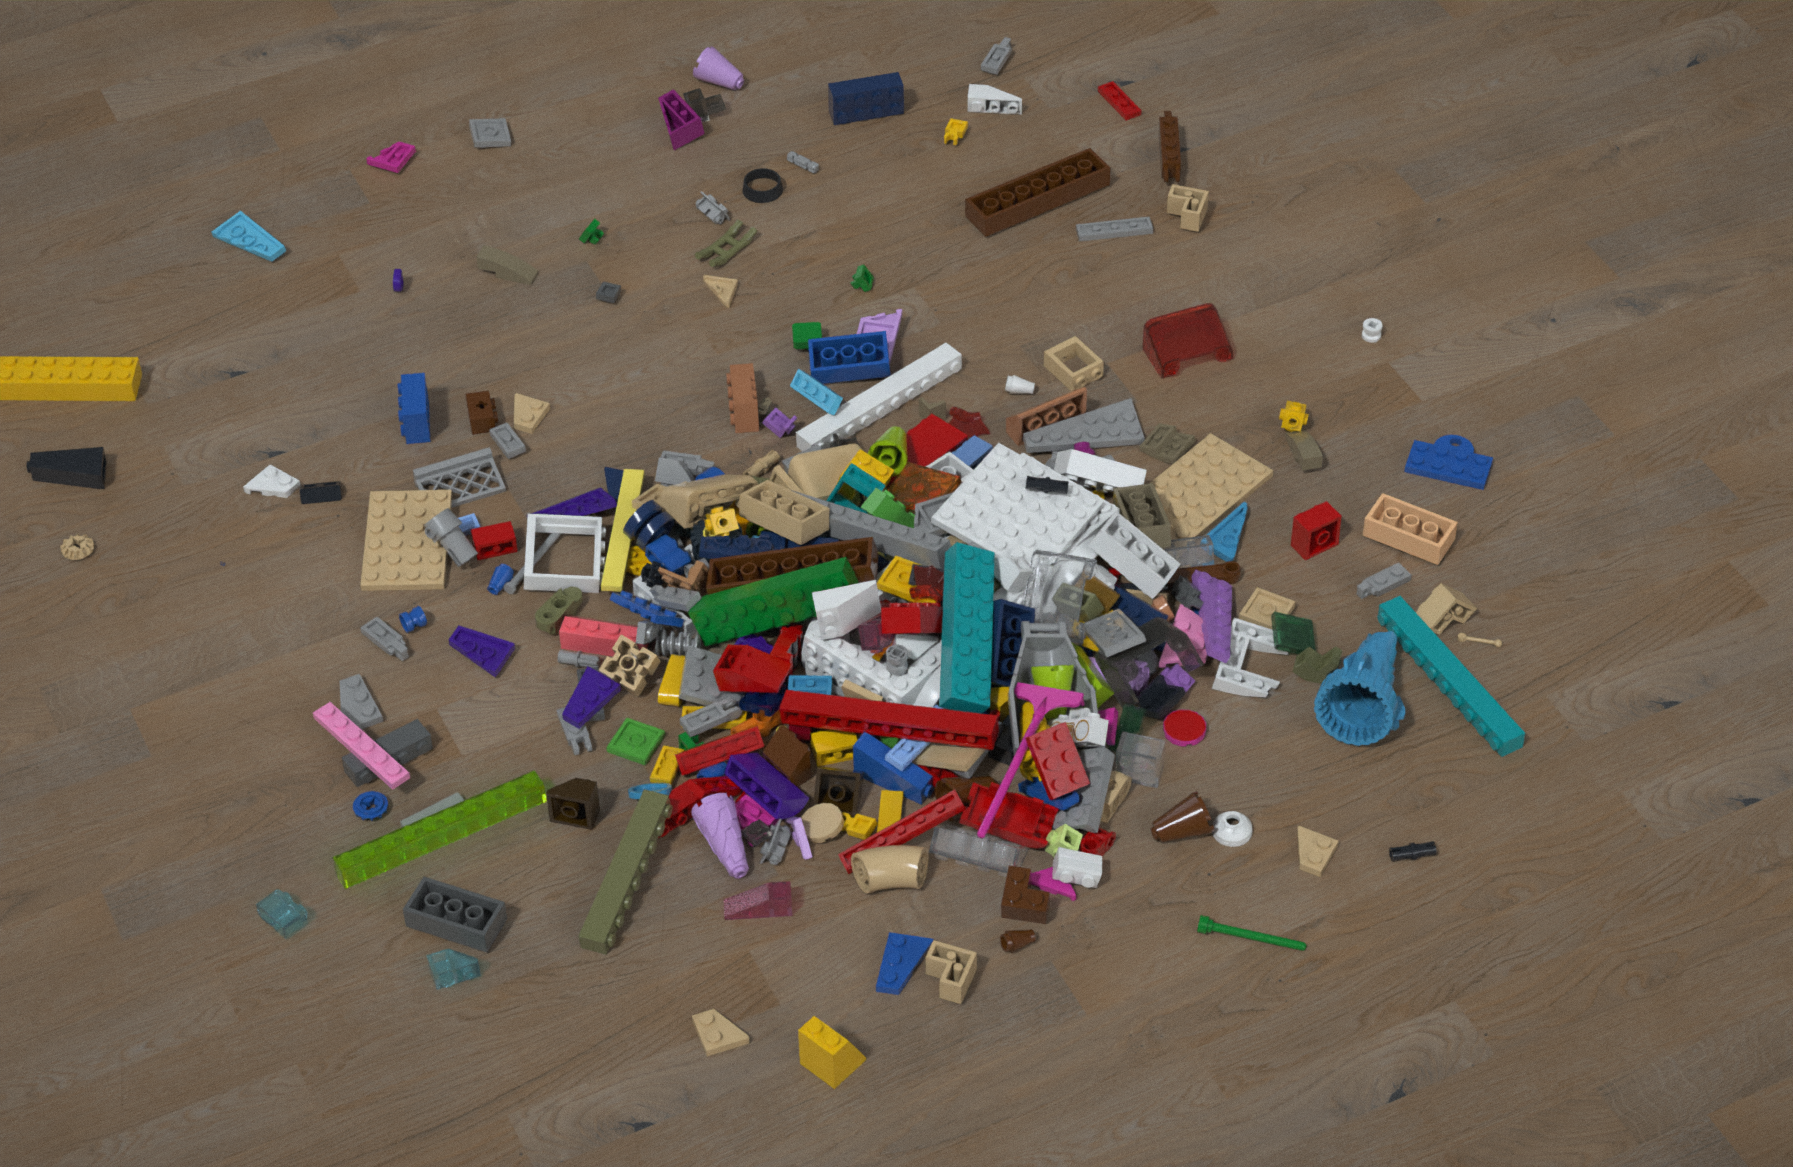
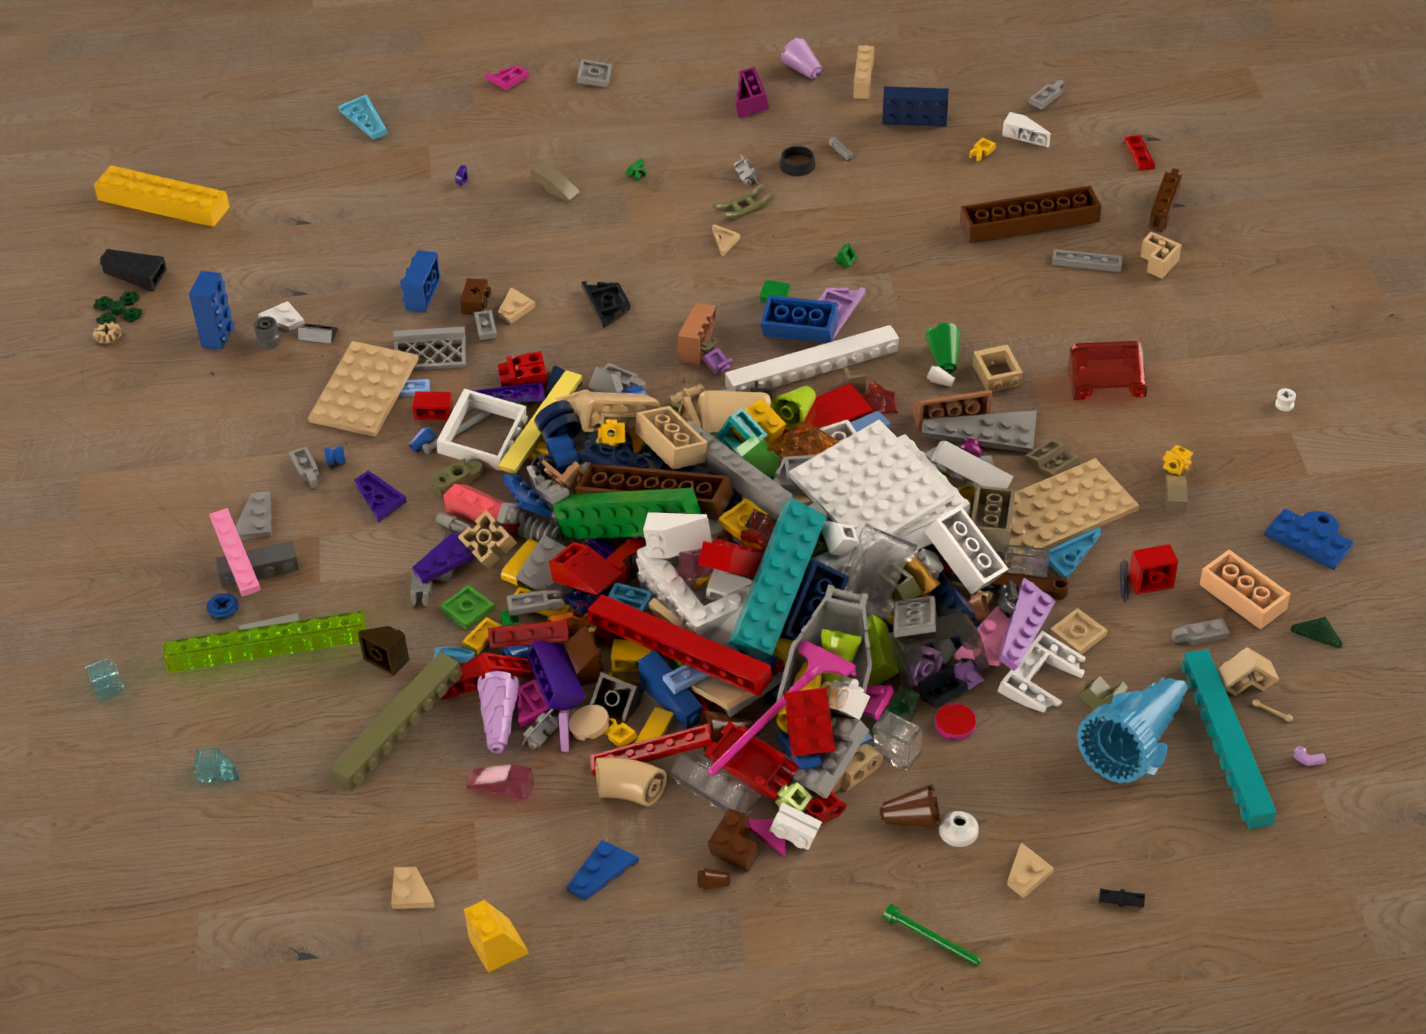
camera: 20 degrees right, 0 degrees up
(73, 515) = (117, 307): none -> dark green plant
(201, 493) = (211, 310): none -> blue brick
(267, 504) = (267, 332): none -> dark grey wheel
(446, 530) = (391, 386): light grey piece -> none
(455, 914) = (239, 719): dark grey brick -> none
(575, 479) = (523, 370): none -> red hips
(608, 292) = (627, 221): dark grey plate -> none
(628, 384) = (607, 301): none -> black wing
(704, 106) = (775, 87): clear smoke brick -> none
(757, 832) = (525, 716): clear smoke plate -> none
(793, 75) = (863, 72): none -> tan arch
(816, 392) = (758, 342): medium azure plate -> none
(896, 659) = (703, 591): light grey wheel -> none
(953, 967) = (640, 889): tan brick -> none
(1010, 352) = (944, 345): none -> green cone
(1047, 485) = (905, 467): black pin -> none
(1288, 543) = (1121, 576): none -> piece
(1292, 633) = (1092, 659): clear green tile -> none
(1493, 552) = (1318, 630): none -> clear green tile
(1528, 677) = (1308, 760): none -> lavender arm

